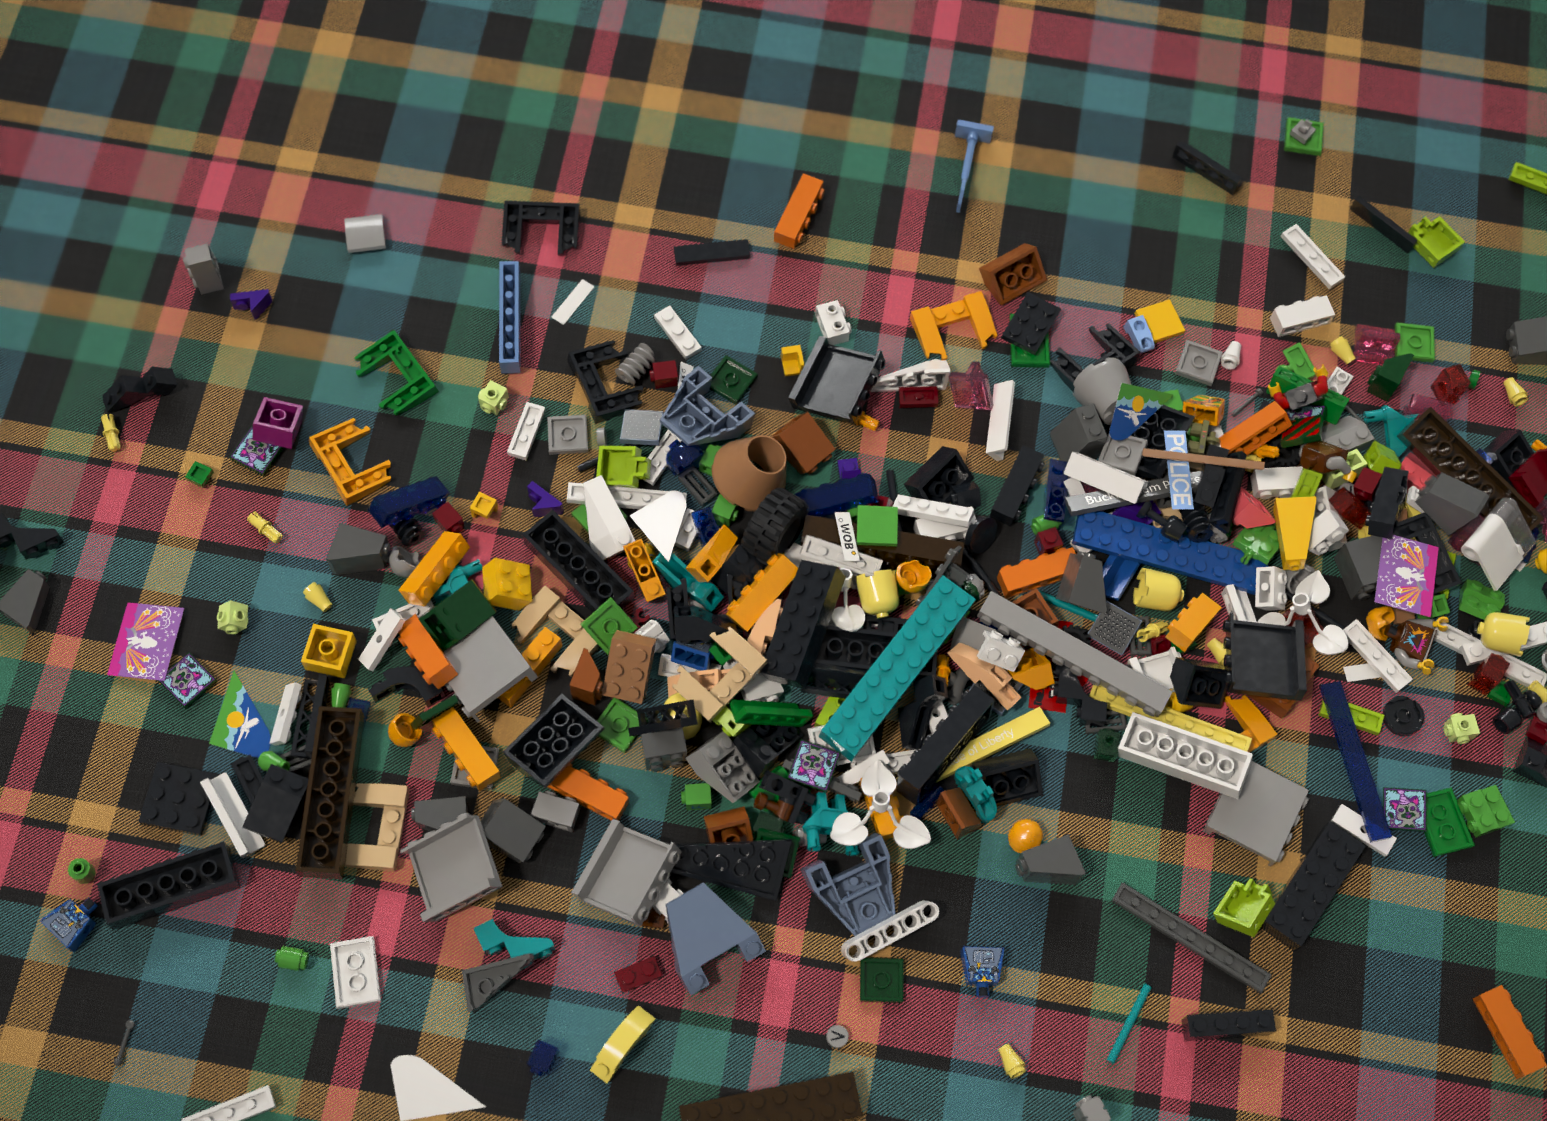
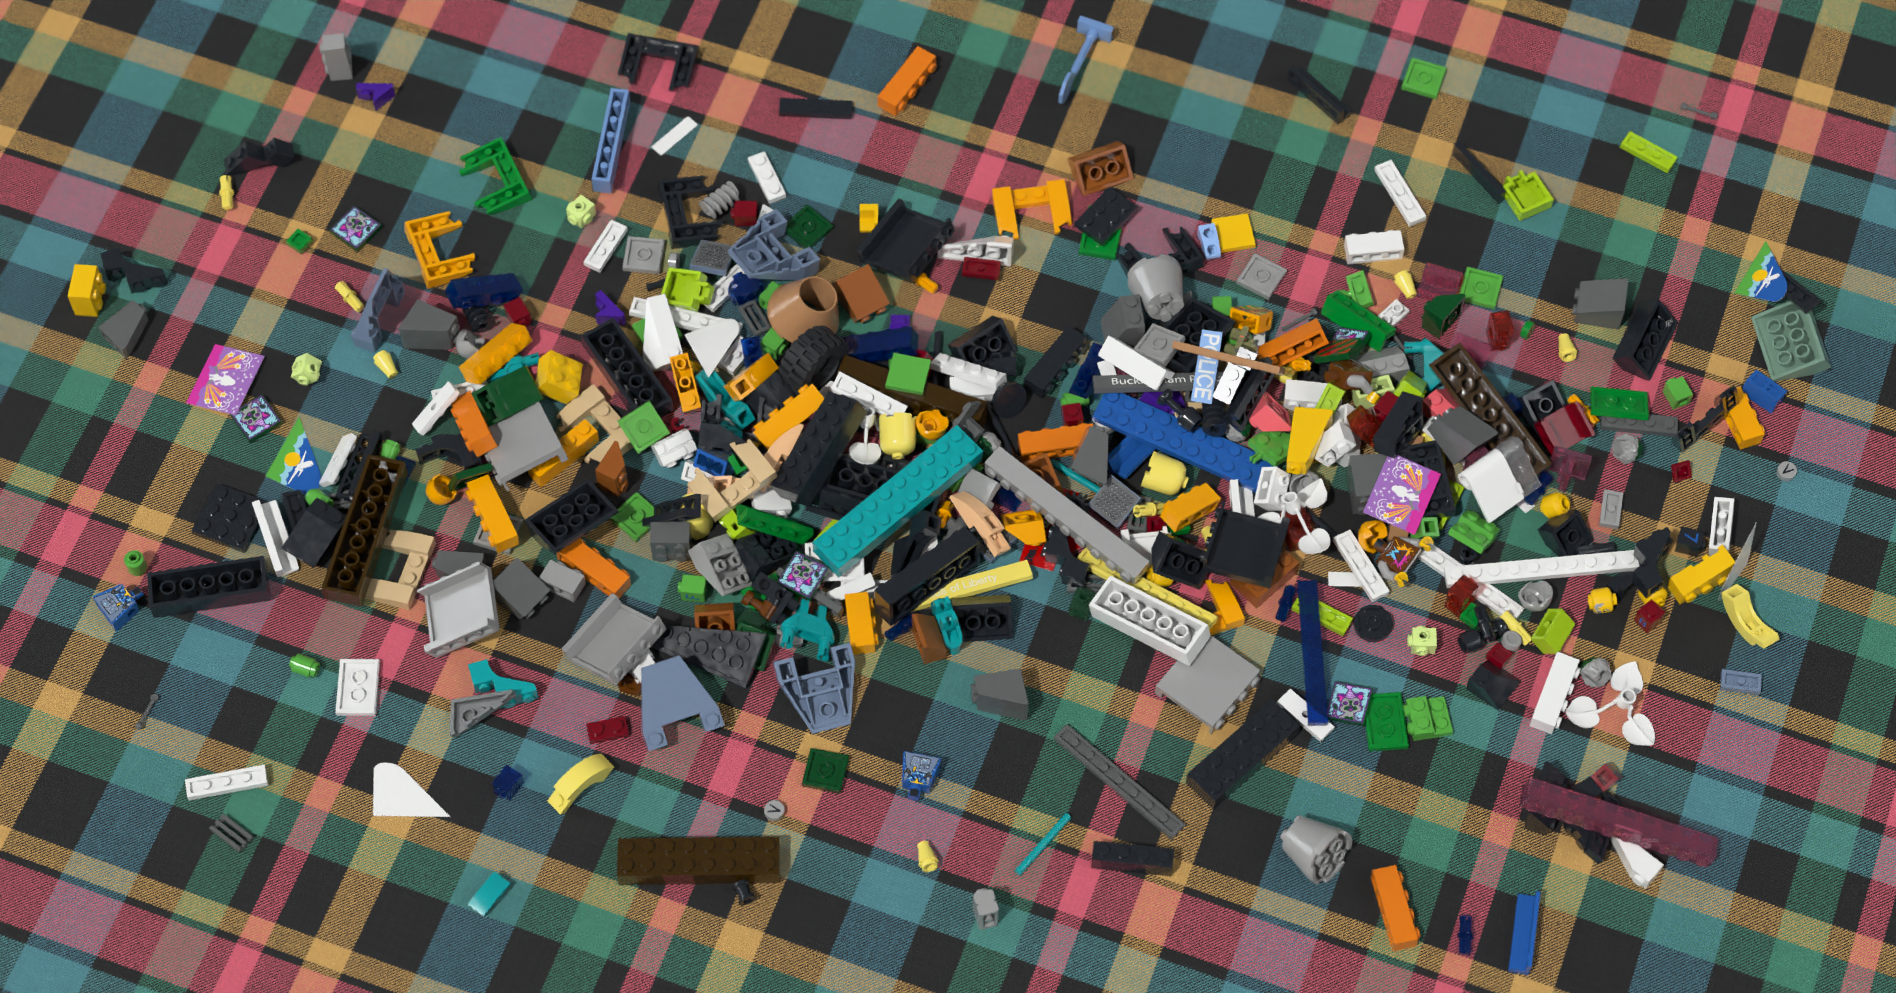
camera: 15 degrees right, 5 degrees down
(277, 422) = (378, 204): magenta brick -> none
(292, 565) = (387, 290): none -> sand blue wedge
(328, 651) = (386, 411): yellow brick -> none
(365, 233) = (492, 46): light grey slope -> none
(483, 506) = (551, 306): yellow panel -> none
(629, 666) = (653, 464): medium nougat brick -> none
(832, 322) = (915, 190): white brick -> none
(847, 536) = (877, 381): white sticker -> none
(879, 784) = (857, 600): white plant -> none
(900, 930) = (833, 734): white beam -> none
(971, 388) = (1030, 266): clear pink bracket -> none
(1000, 419) = (1053, 300): white panel -> none
(1001, 651) = (997, 501): white bracket -> none
(1025, 835) = (985, 664): light orange hair -> none
(1134, 408) = (1177, 304): sticker -> none
(1231, 356) = (1294, 275): white cone -> none
(1245, 907) = (1175, 763): lime piece -> none
(1303, 131) = (1421, 73): light grey tile -> none
(1303, 394) = (1348, 316): torso -> none
(1311, 709) = (1285, 602): none -> clear blue axle
(1415, 980) = (1316, 848): none -> light grey cone
(1504, 632) = (1481, 559): light yellow cylinder -> none

